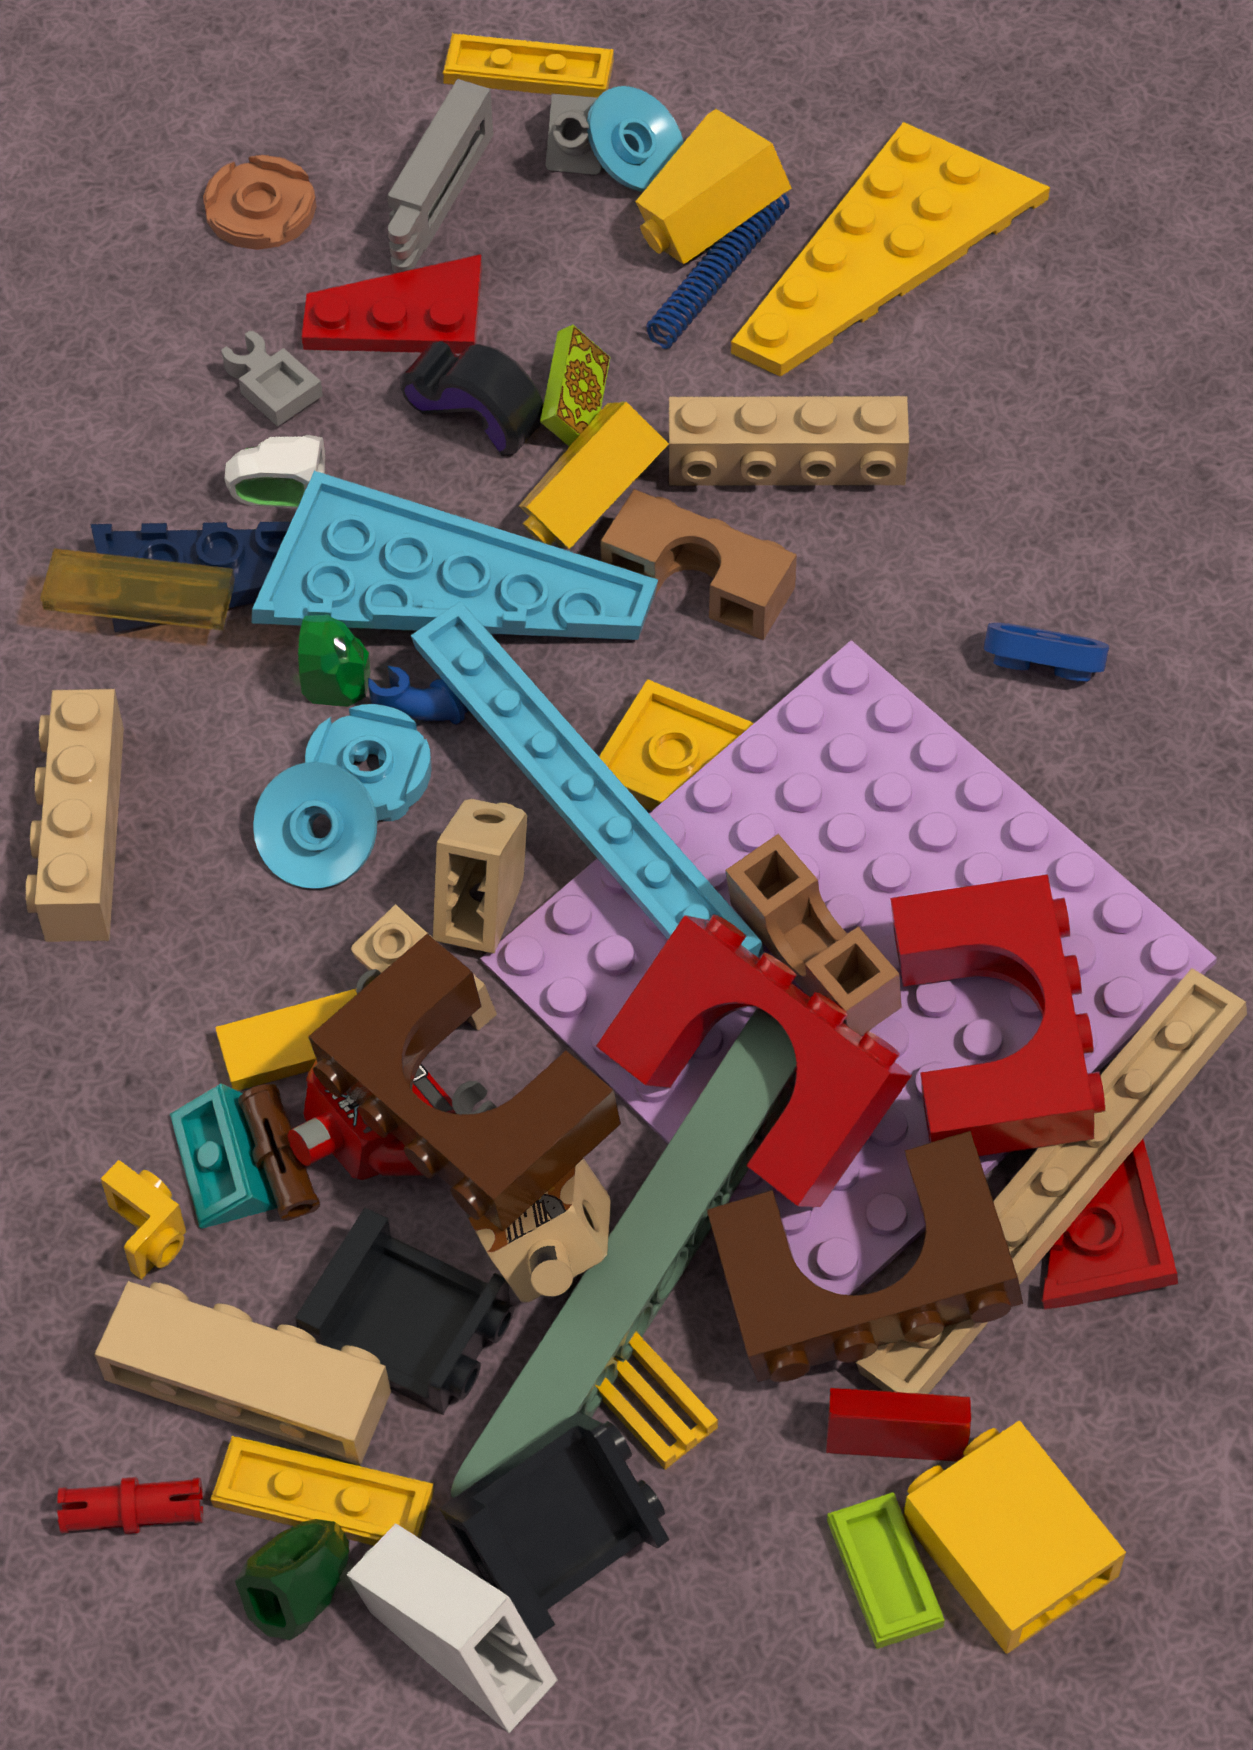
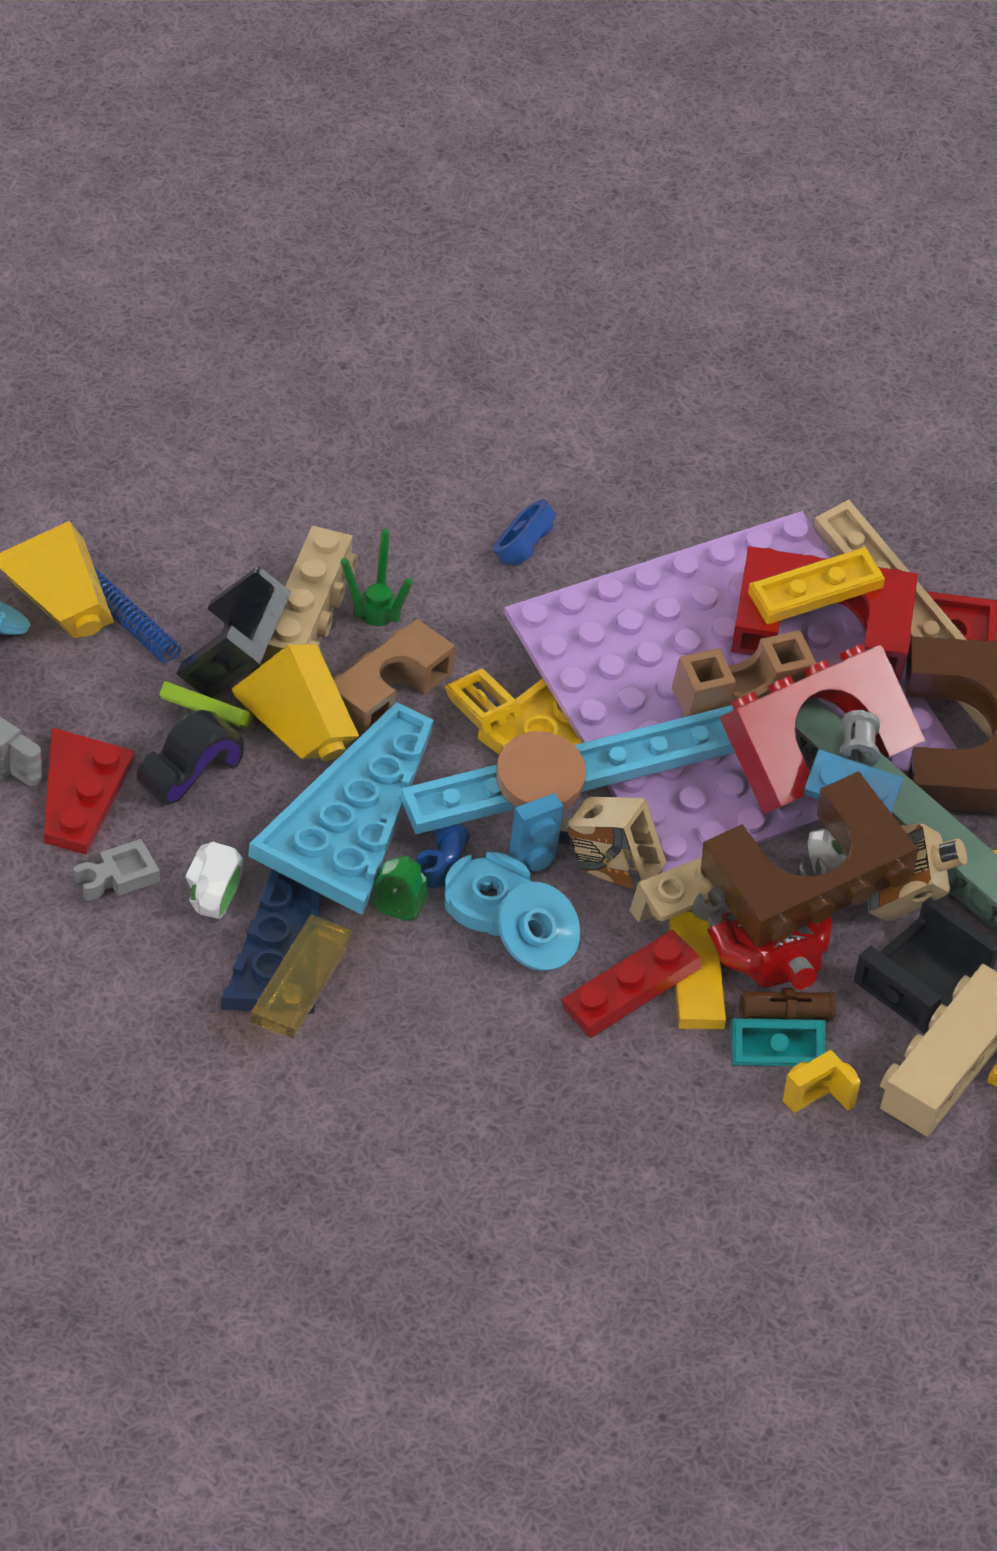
camera: 80 degrees left, 10 degrees down
(78, 816) = (484, 1052): tan brick -> none
(259, 957) = (631, 983): none -> red plate
(448, 767) = (536, 832): none -> dark azure plate
(537, 740) = (539, 766): none -> nougat tile
(653, 1120) = (831, 768): none -> dark azure plate
(660, 385) = (249, 617): none -> black panel
(704, 679) = (495, 714): none -> yellow tile
(730, 1103) = (861, 737): none -> light grey bush
(836, 515) = (378, 602): none -> green plant
(890, 233) = (131, 510): yellow wing -> none
(1001, 976) = (816, 585): none -> yellow tile

